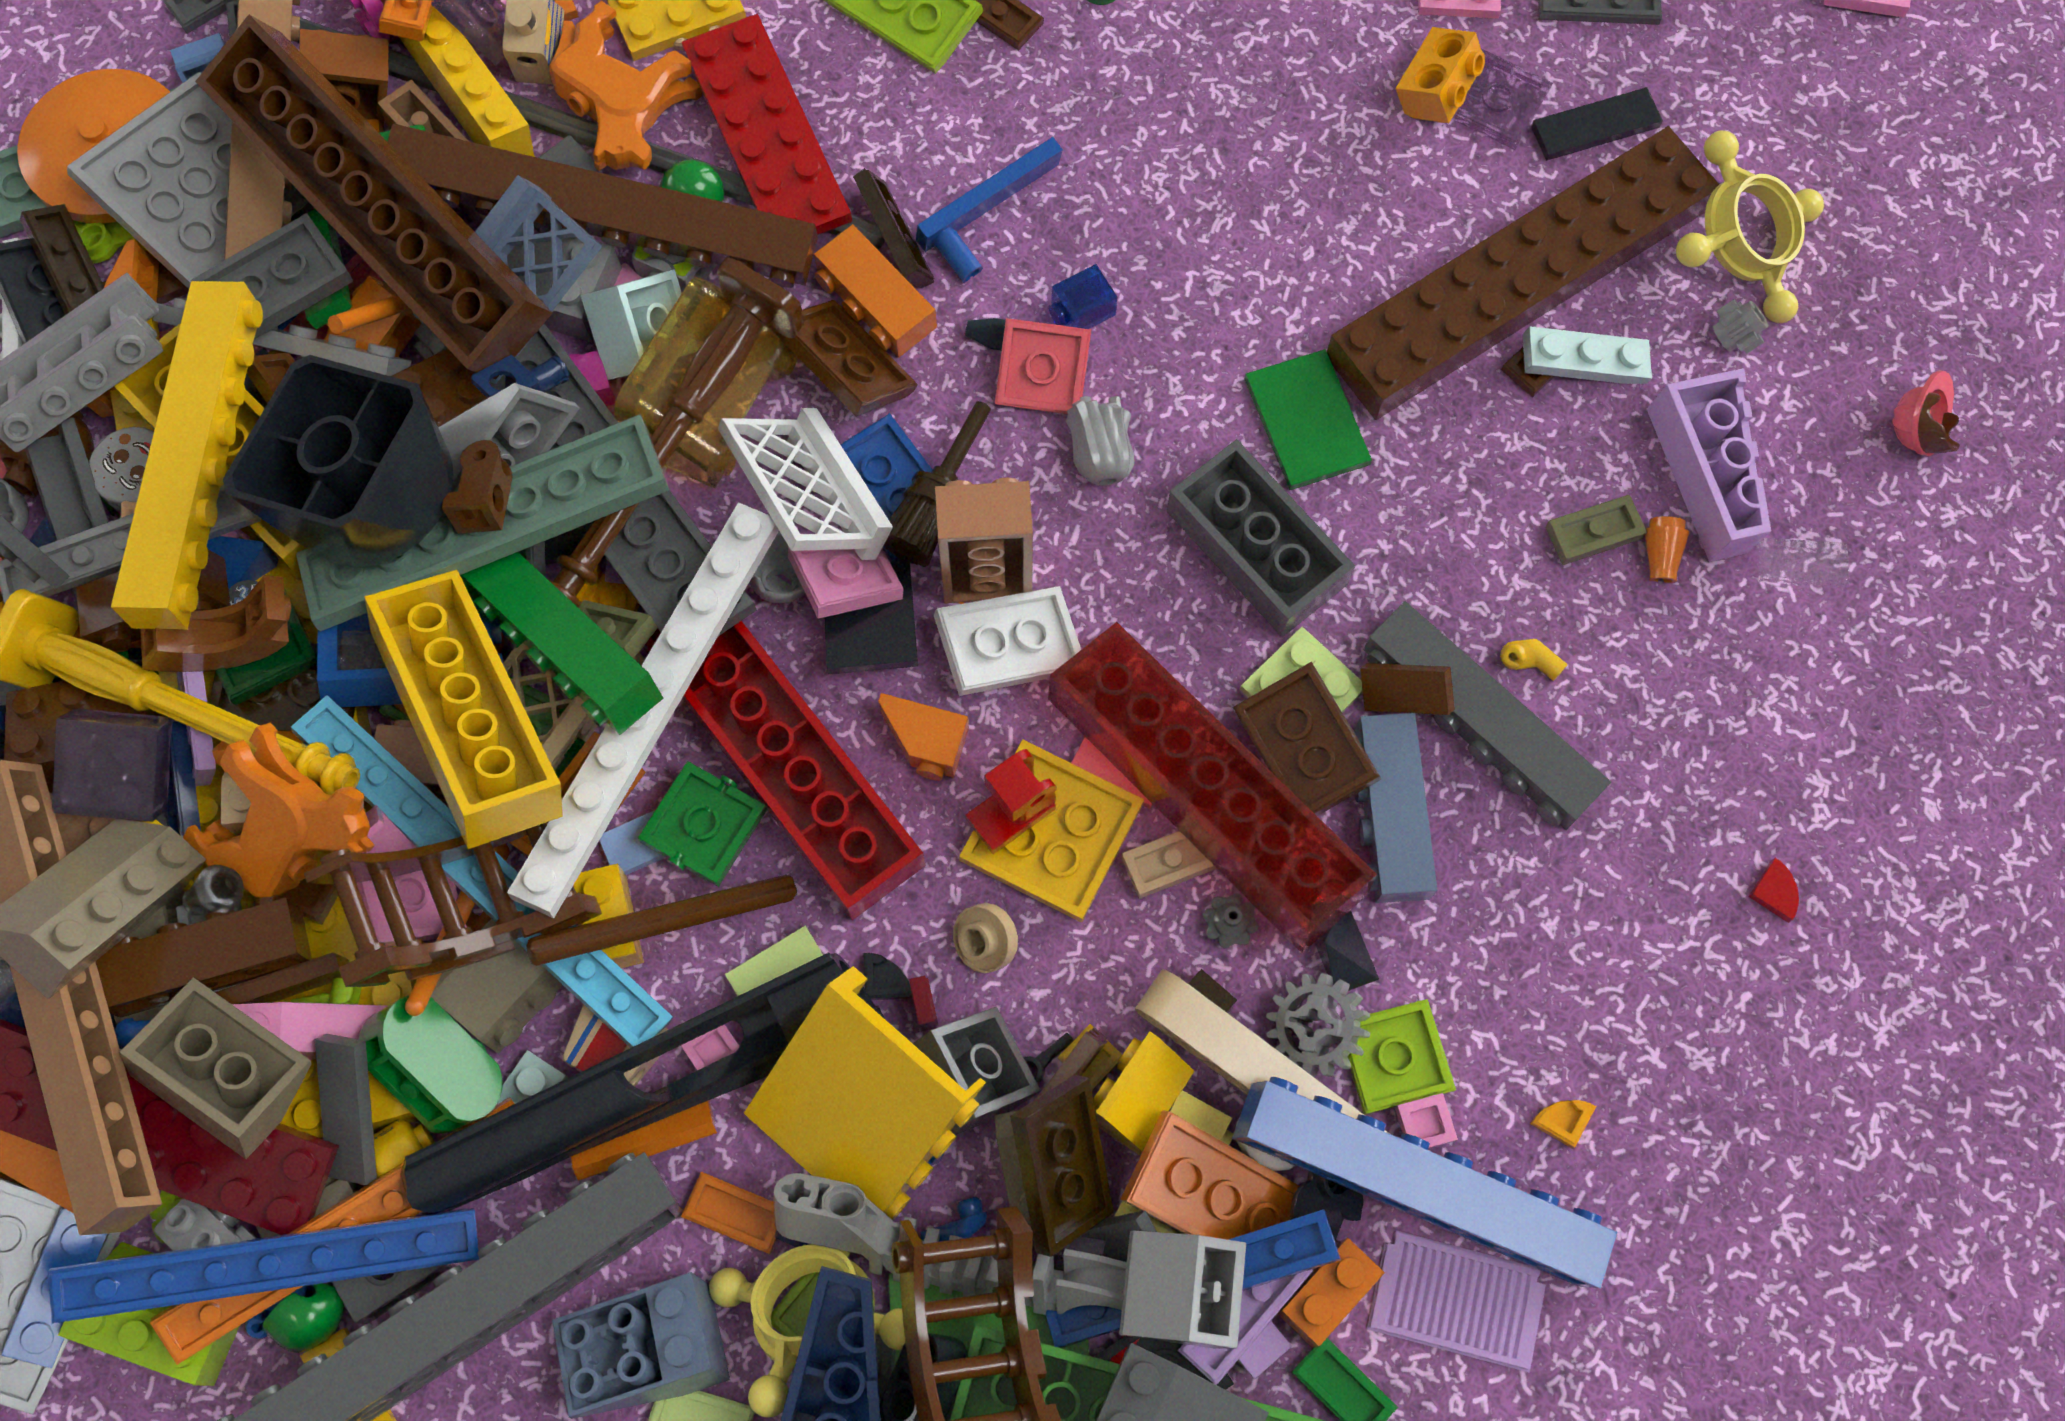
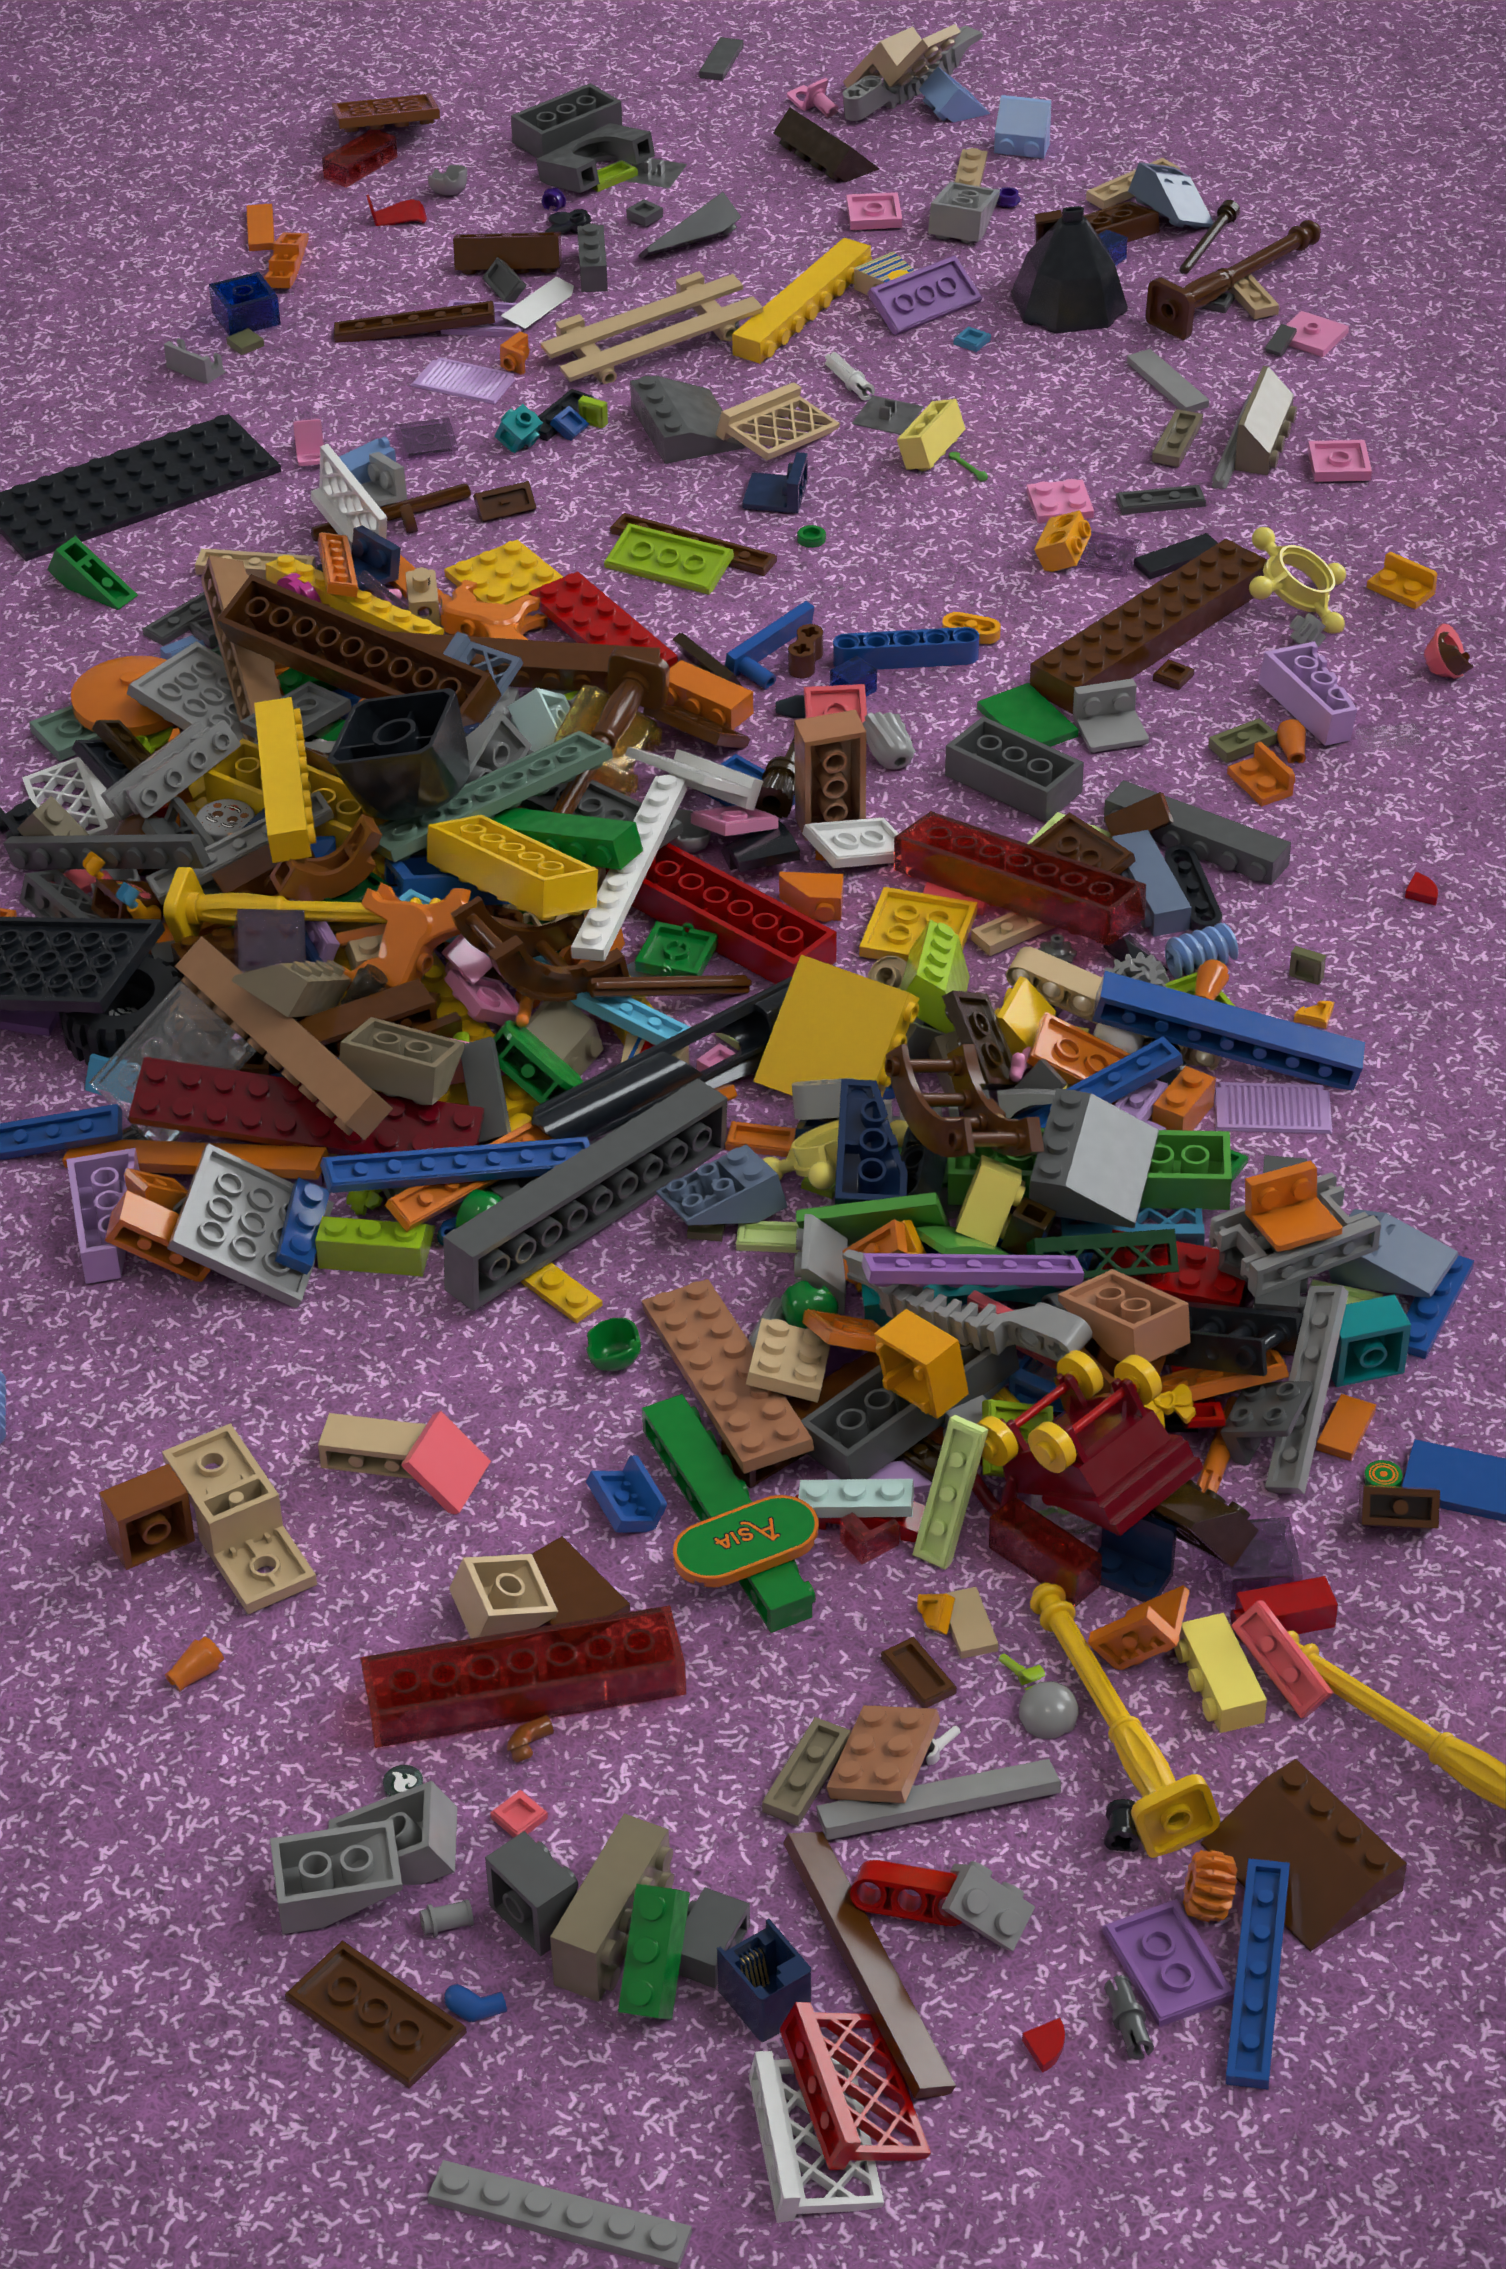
camera: 10 degrees left, 30 degrees down
(482, 490) = (485, 772): reddish brown leg -> none
(1015, 802) = (896, 895): red piece -> none
(1034, 987) = (934, 969): none -> lime slope
(1037, 222) = (805, 651): none -> reddish brown axle
(1111, 1196) = (1019, 1066): none -> bright pink piece
(1183, 1289) = (1084, 1065): light grey slope -> none
(1190, 241) = (909, 647): none -> blue beam
(1275, 219) = (988, 628): none -> light orange plate
(1419, 453) = (1108, 715): none -> light grey bracket
(1426, 1051) = (1211, 979): none -> orange cone
(1429, 967) = (1196, 948): none -> light blue piece
(1453, 827) = (1195, 886): none -> black plate
(1532, 654) = (1221, 805): yellow arm -> none
(1575, 1029) = (1307, 965): none -> olive tile
(1586, 356) = (1208, 660): light aqua plate -> none
(1606, 611) = (1263, 776): none -> orange bracket
(1900, 244) = (1404, 581): none -> light orange bracket

